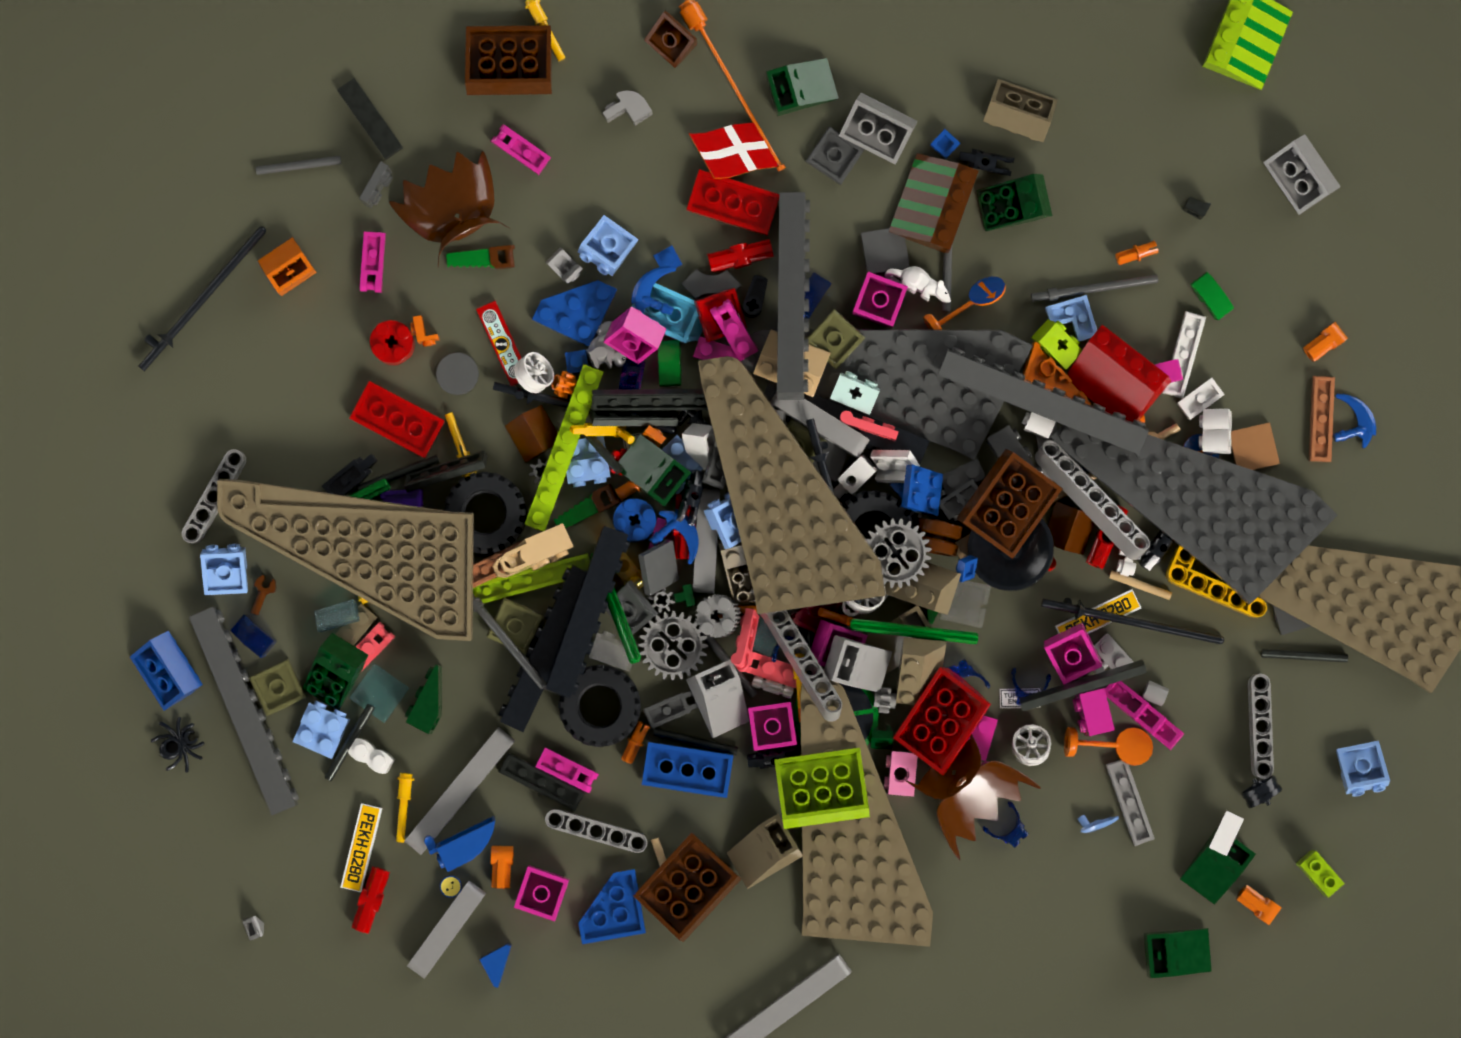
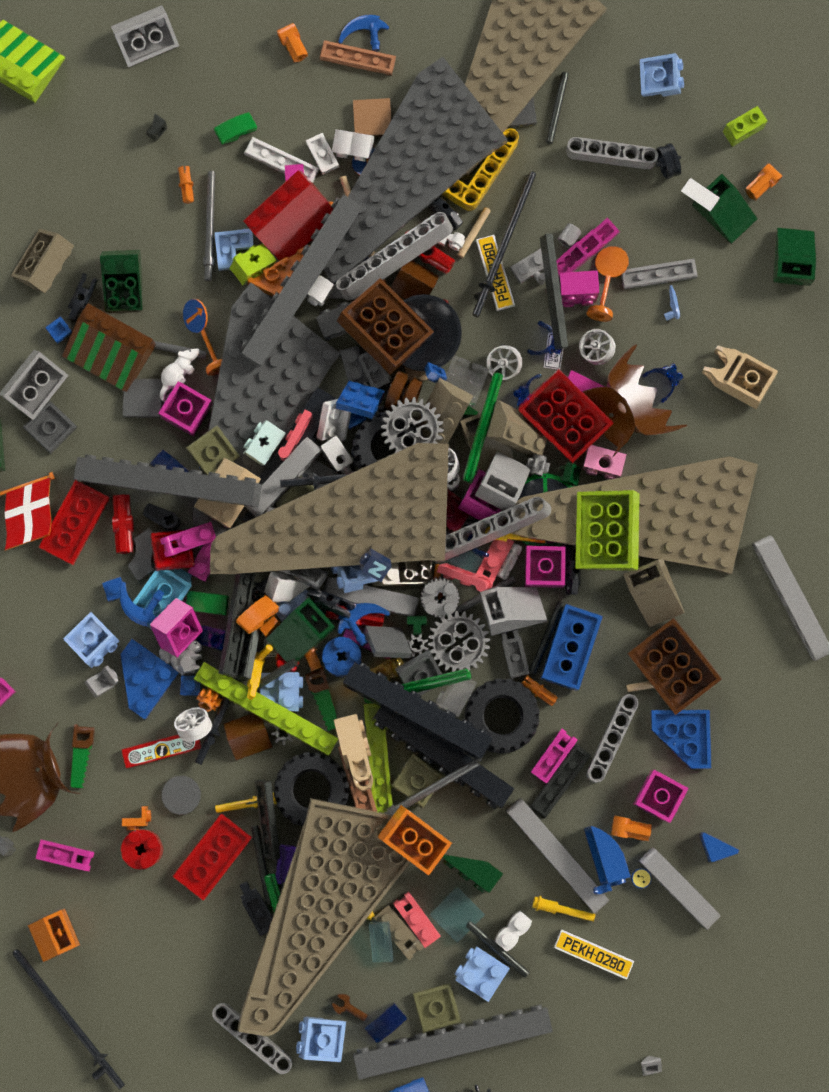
camera: 80 degrees left, 5 degrees down
(334, 671) = (431, 951): dark green slope -> none
(370, 899) = (642, 953): red piece -> none
(448, 632) = (414, 840): none -> orange brick
(663, 419) = (256, 614): none -> orange slope
(737, 538) = (375, 564): none -> dark blue brick
(843, 619) = (458, 494): orange bar -> none
(995, 643) = (504, 362): none -> white wheel
(1033, 907) = (736, 375): none -> tan brick
(1072, 653) = (524, 297): dark pink brick -> none

